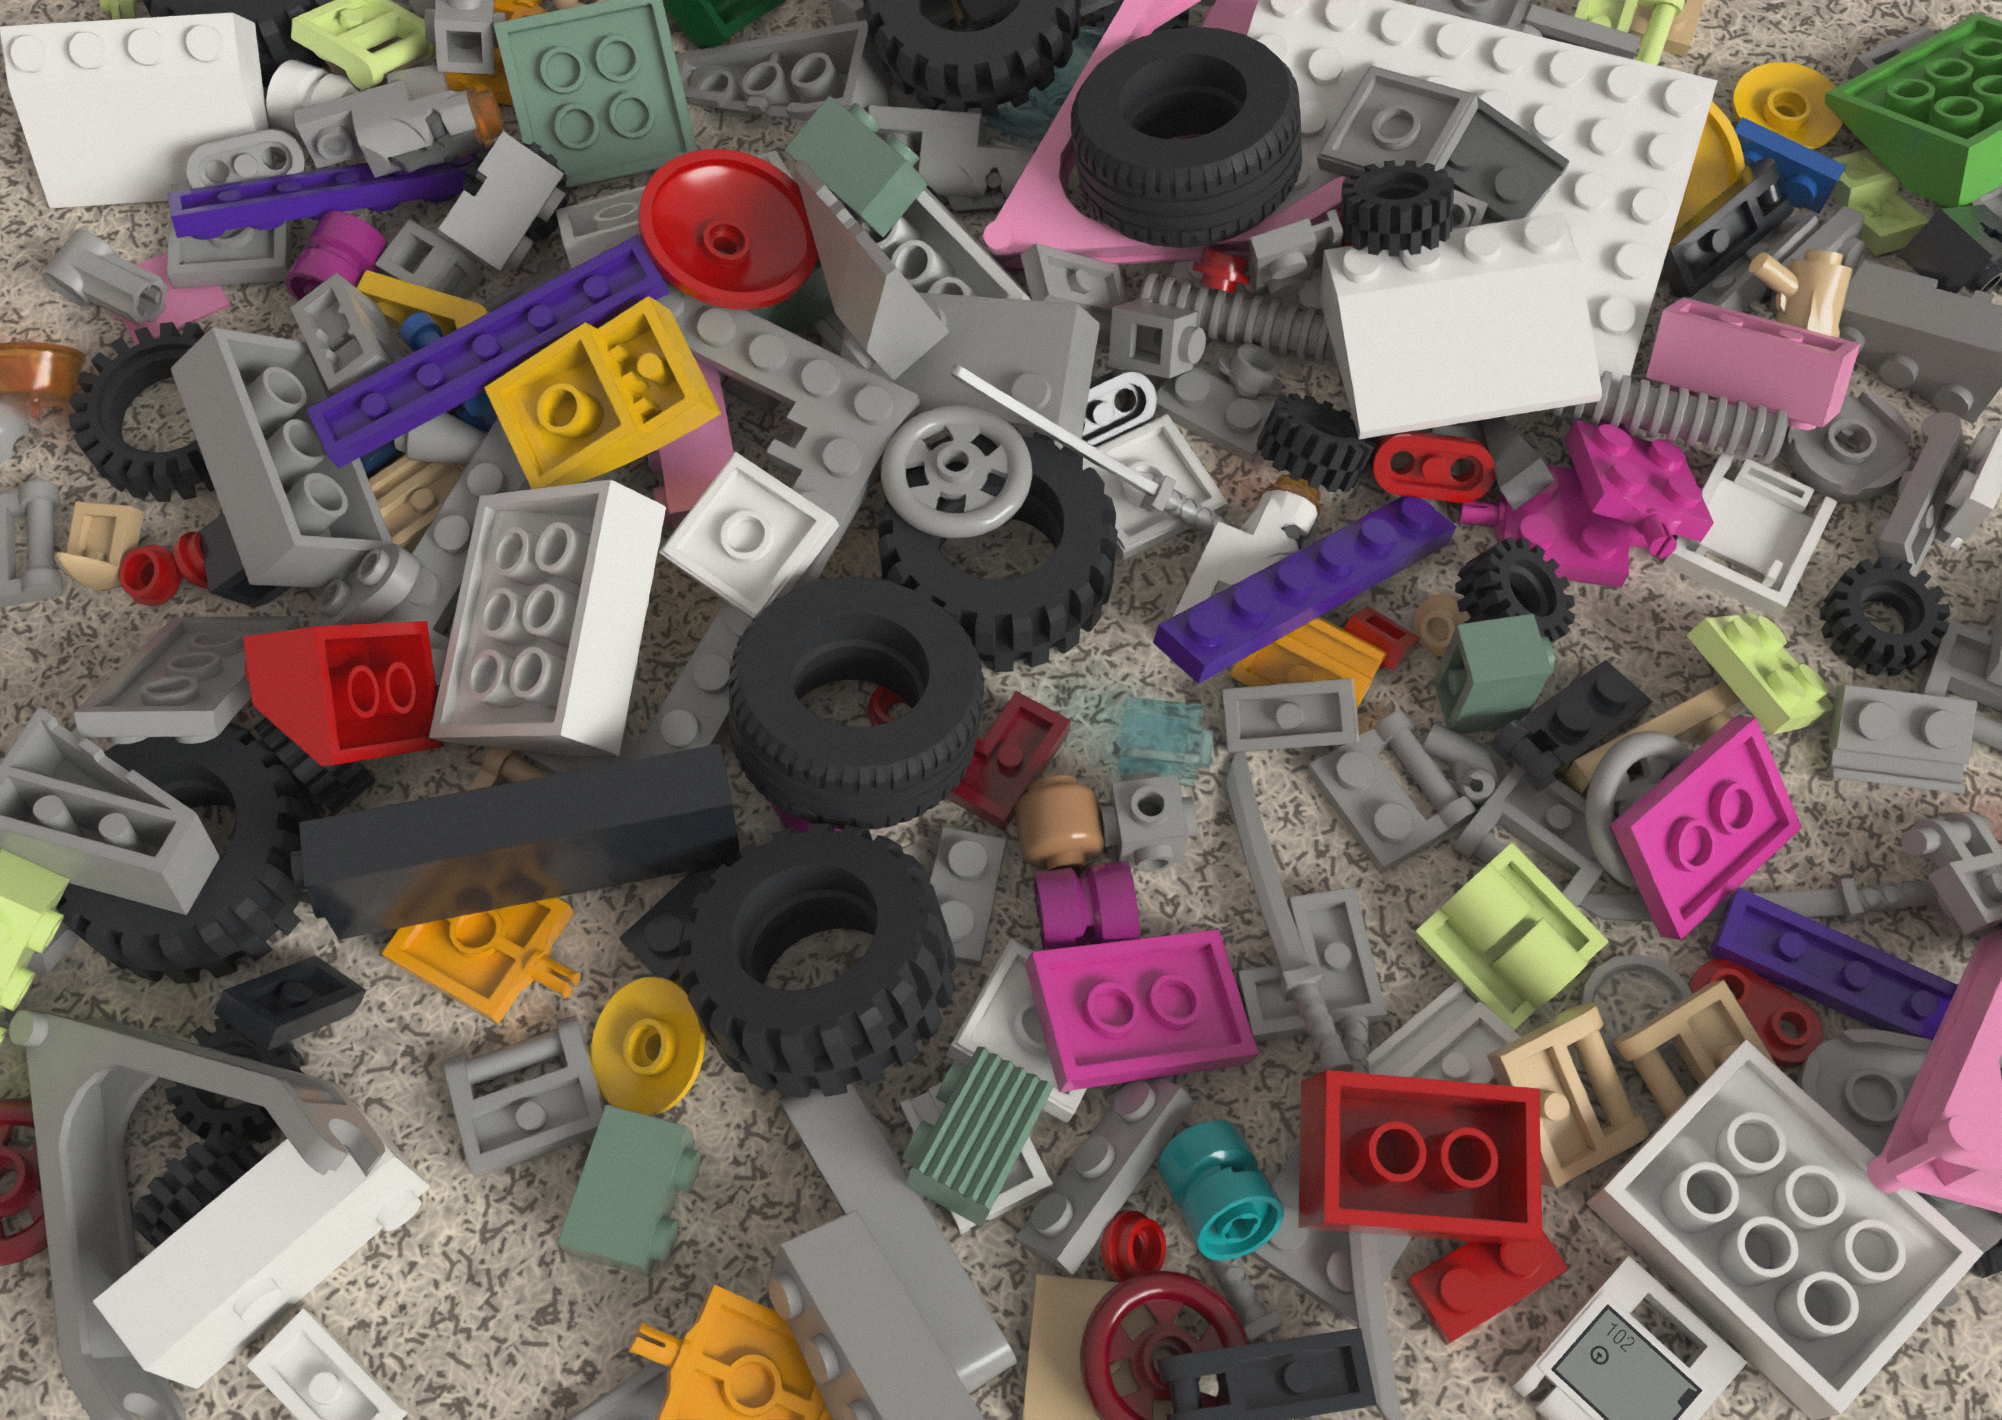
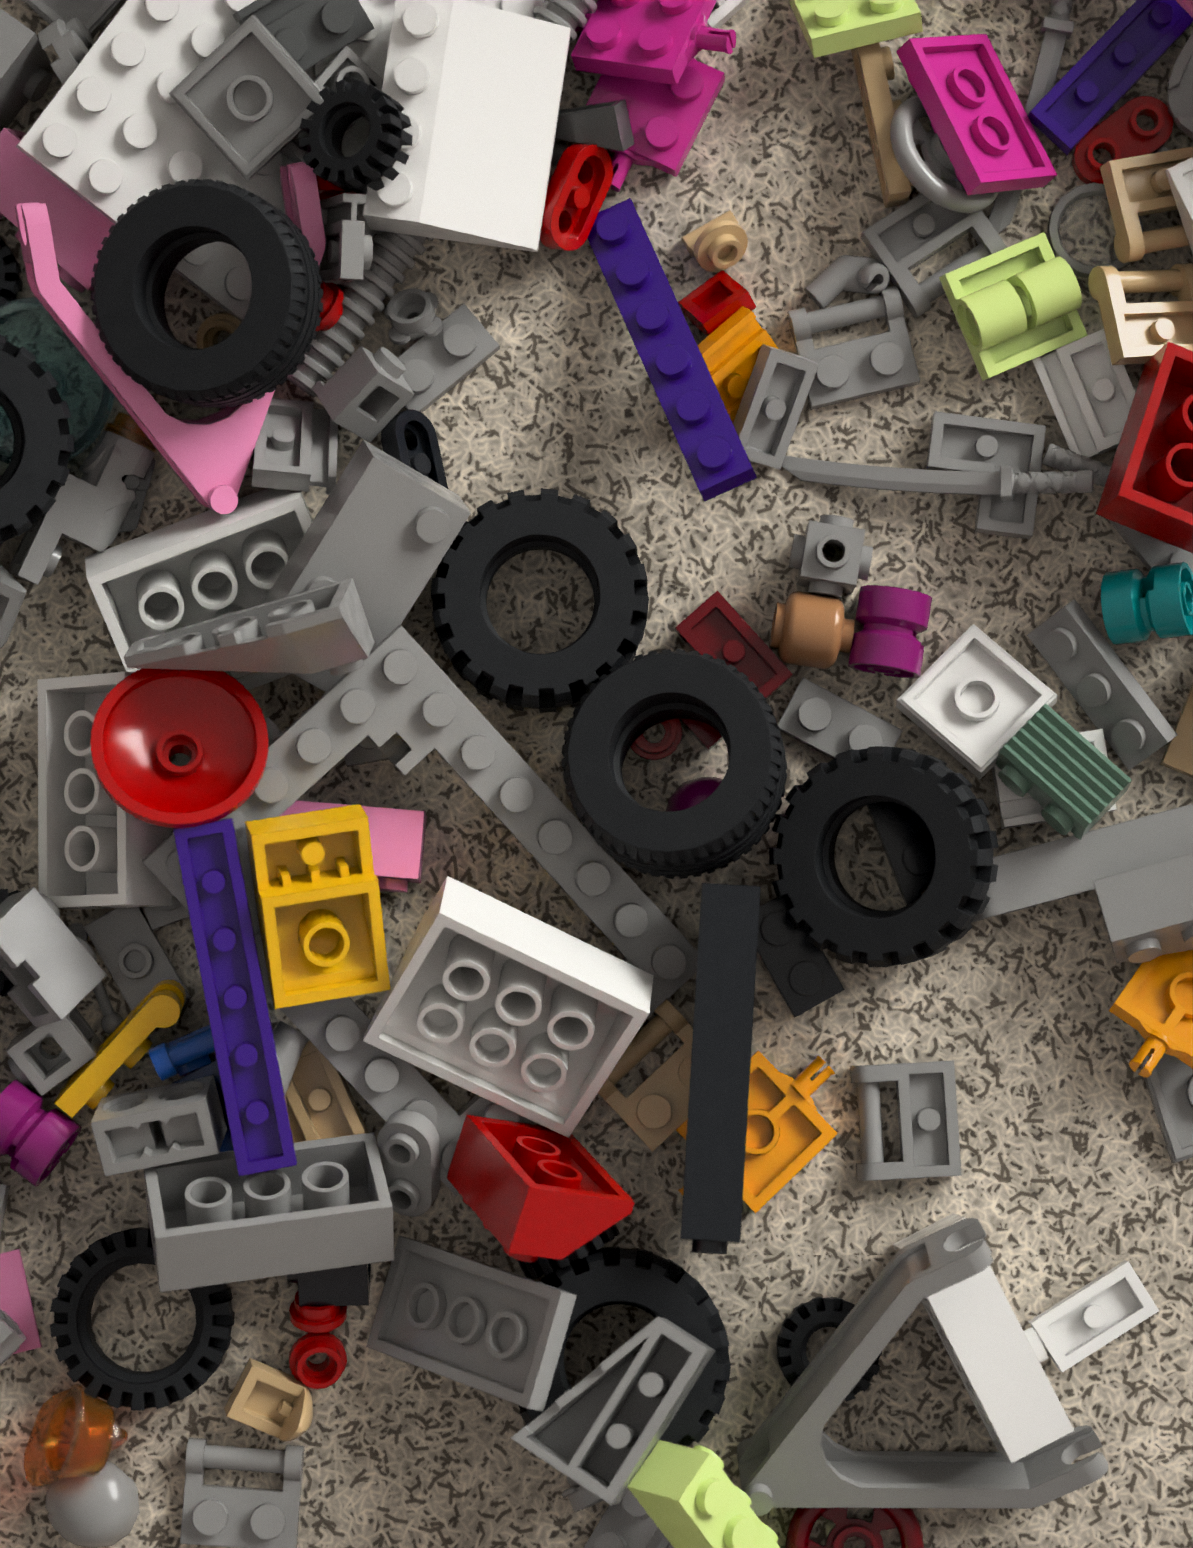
camera: 75 degrees left, 20 degrees up
(192, 1184) = (930, 1381): black tyre -> none
(289, 1002) = (785, 1290): black plate -> none
(627, 1044) = (904, 1034): yellow dish -> none
(630, 1192) = (1013, 1054): sand green brick -> none
(748, 537) = (492, 812): white tile -> none
(857, 165) = (110, 606): sand green brick -> none
(982, 510) = (450, 649): light grey plate -> none
(1132, 1245) = (1166, 683): red plate -> none
(1139, 1009) = (989, 616): dark pink plate -> none
(1154, 452) = (497, 446): white tile -> none
(1158, 491) = (530, 446): light grey sword -> none
(1164, 739) = (759, 520): clear light blue brick -> none
(1275, 529) = (616, 382): white plate -> none
(1314, 443) = (530, 306): black tyre -> none
(1493, 673) = (796, 228): sand green brick -> none
(1516, 582) = (728, 158): black tyre -> none
(1571, 724) = (847, 179): black plate -> none

